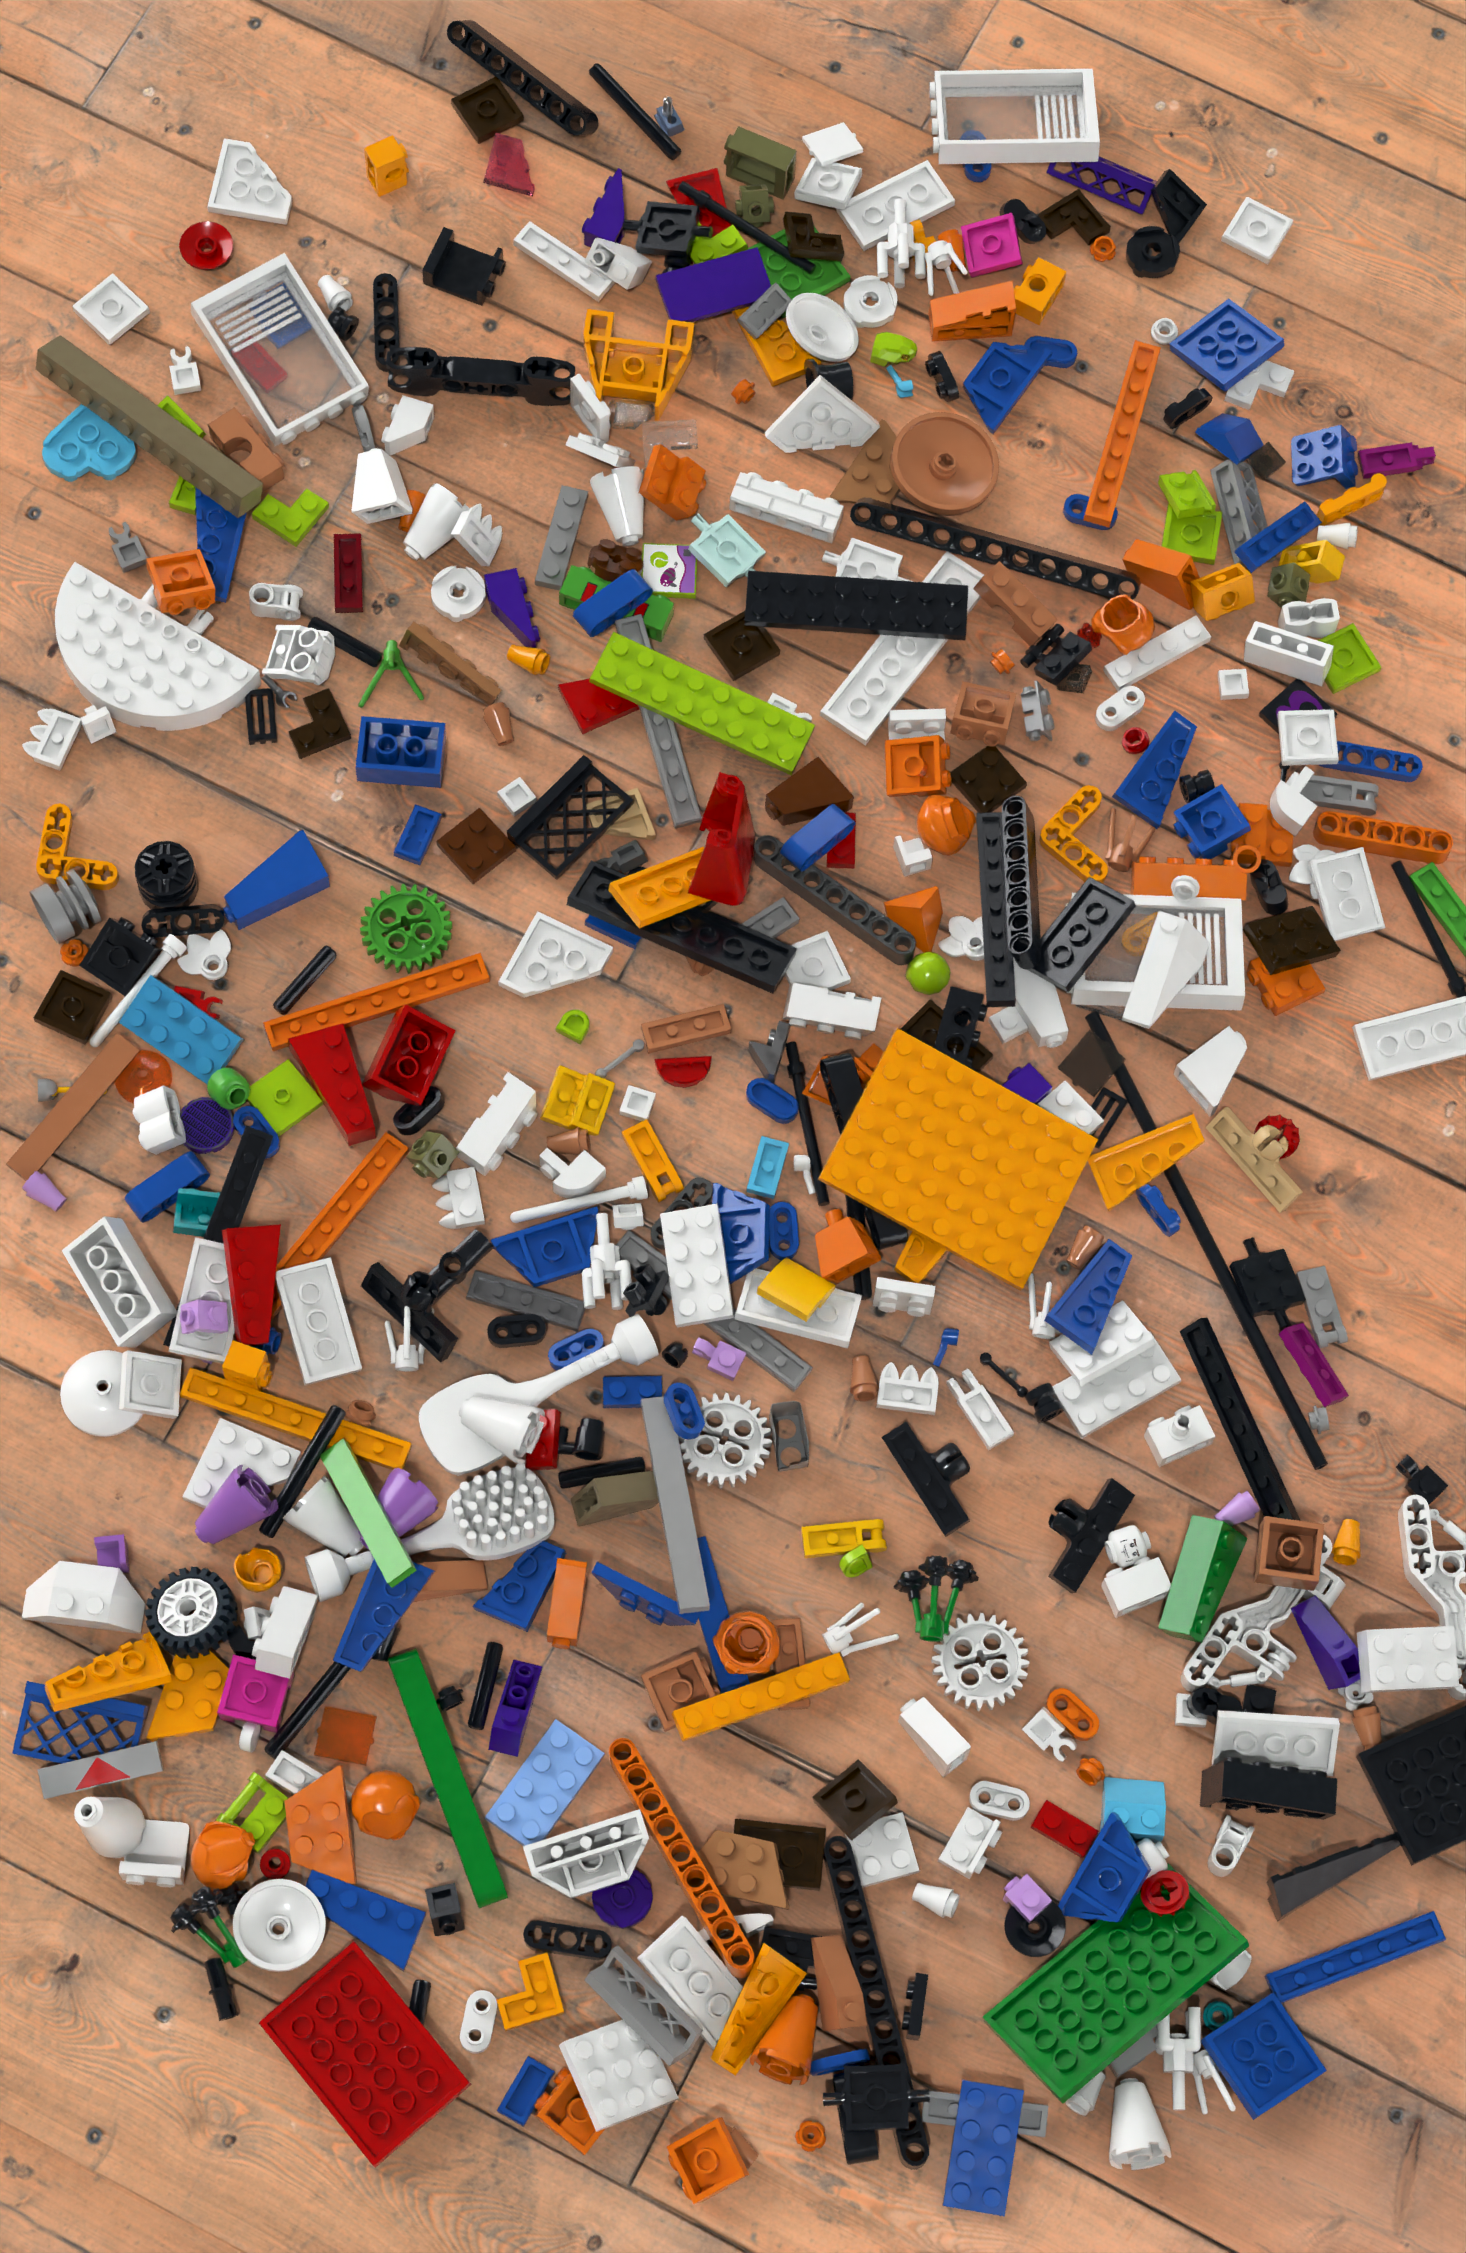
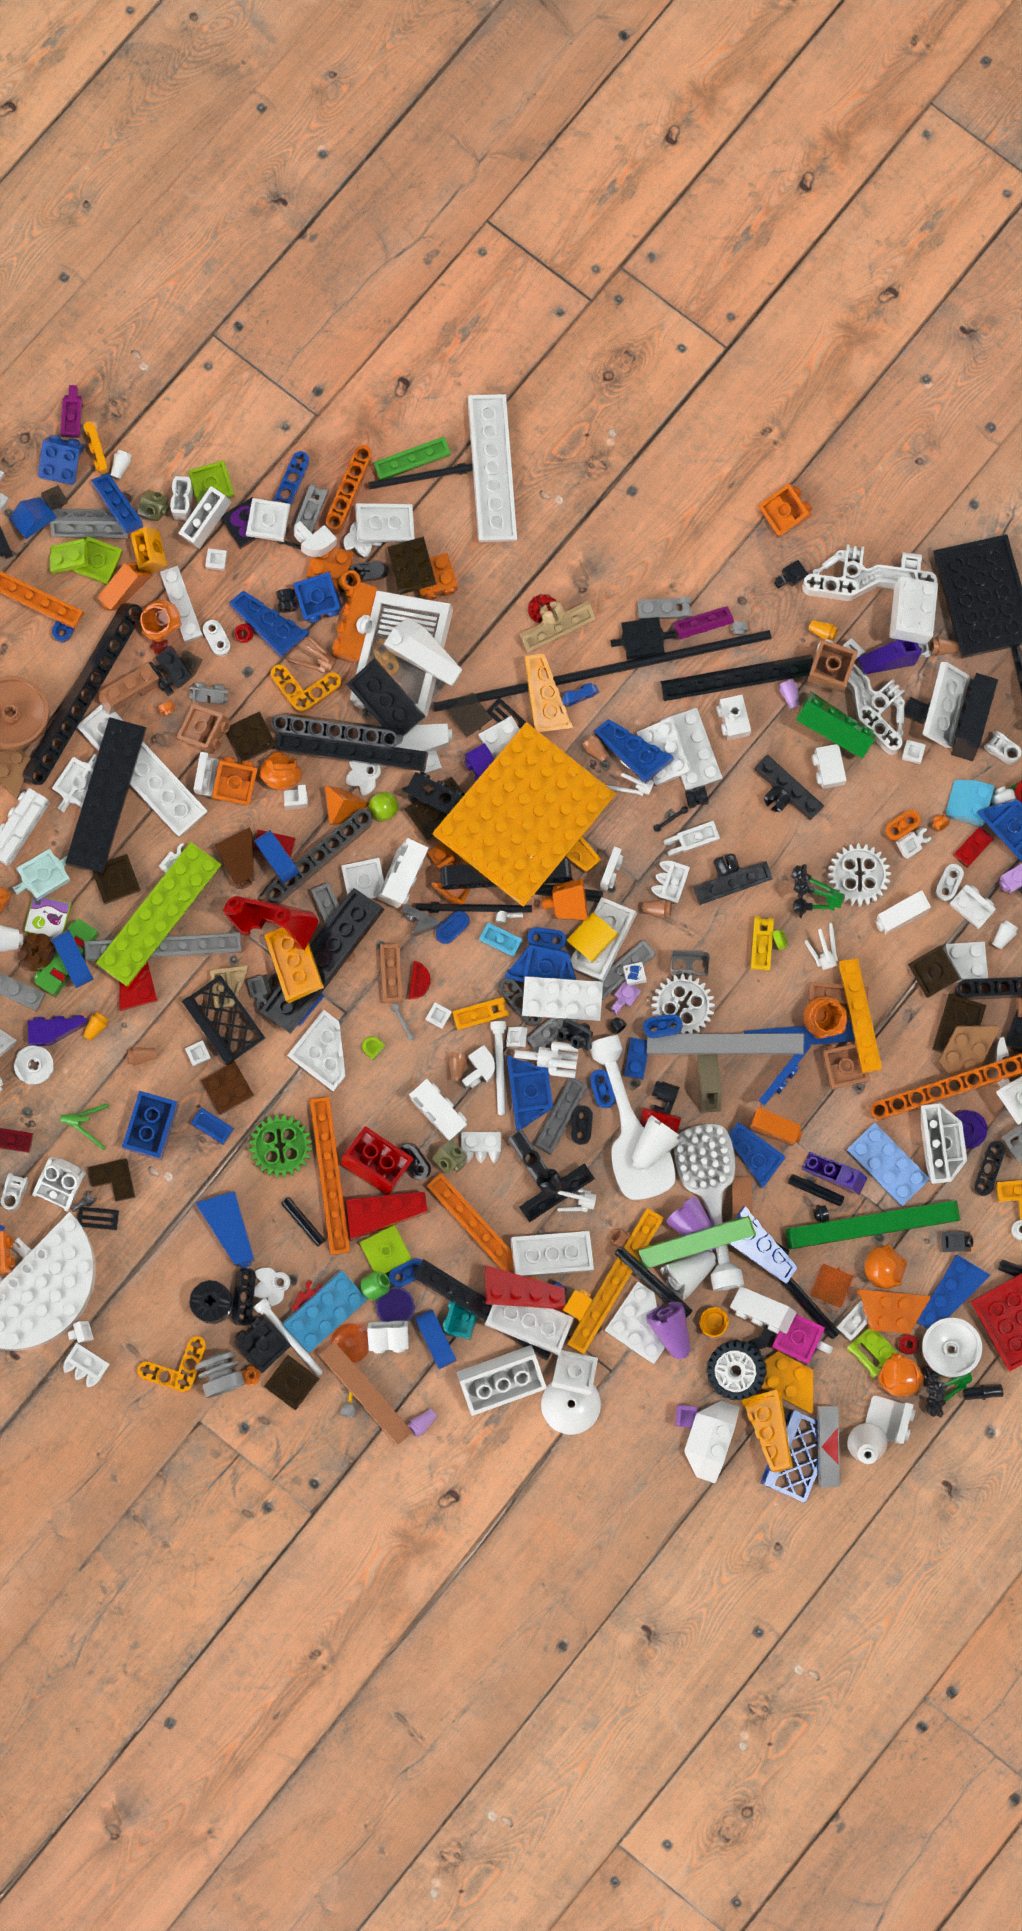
camera: 75 degrees left, 10 degrees up
(204, 1317) = (543, 1326): lavender bracket -> none
(253, 1621) = (749, 1329): white plate -> none
(348, 643) = (54, 1149): black axle -> none
(450, 664) = (90, 1080): medium nougat wing -> none
(577, 1100) = (427, 1055): yellow slope -> none
(584, 1475) = (688, 1089): black axle -> none
(756, 1361) = (634, 974): none -> white tile
(949, 1337) = (639, 849): blue hand -> none
(1127, 1546) = (802, 766): white head -> none
(1206, 1702) = (911, 744): black piece -> none
(1211, 1068) = (490, 637): white slope -> none
(1316, 558) = (138, 482): yellow slope -> none

